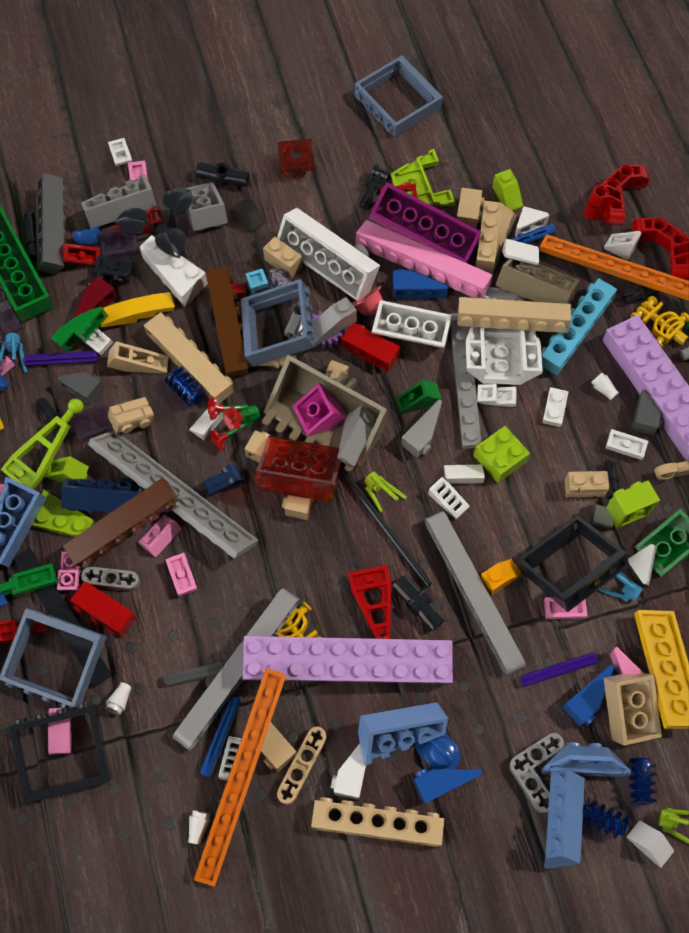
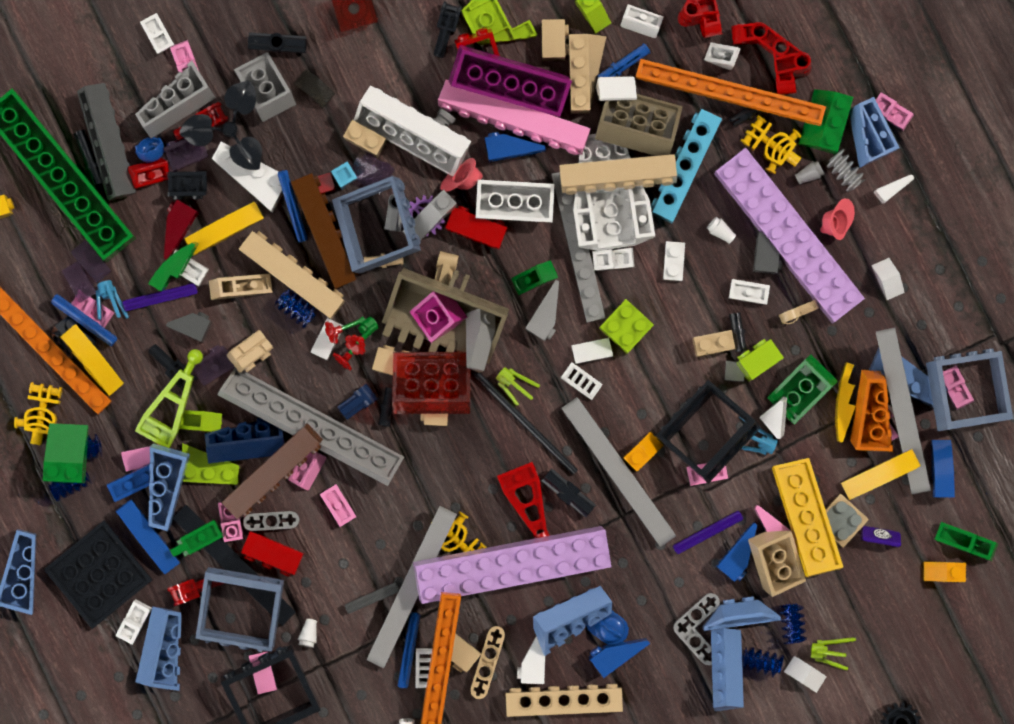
camera: 15 degrees left, 20 degrees up
(203, 297) = (292, 205): none -> blue axle
(250, 494) = (386, 408): none -> black pin
(530, 220) = (620, 44): white slope -> none
(556, 210) = (641, 21): none -> white slope

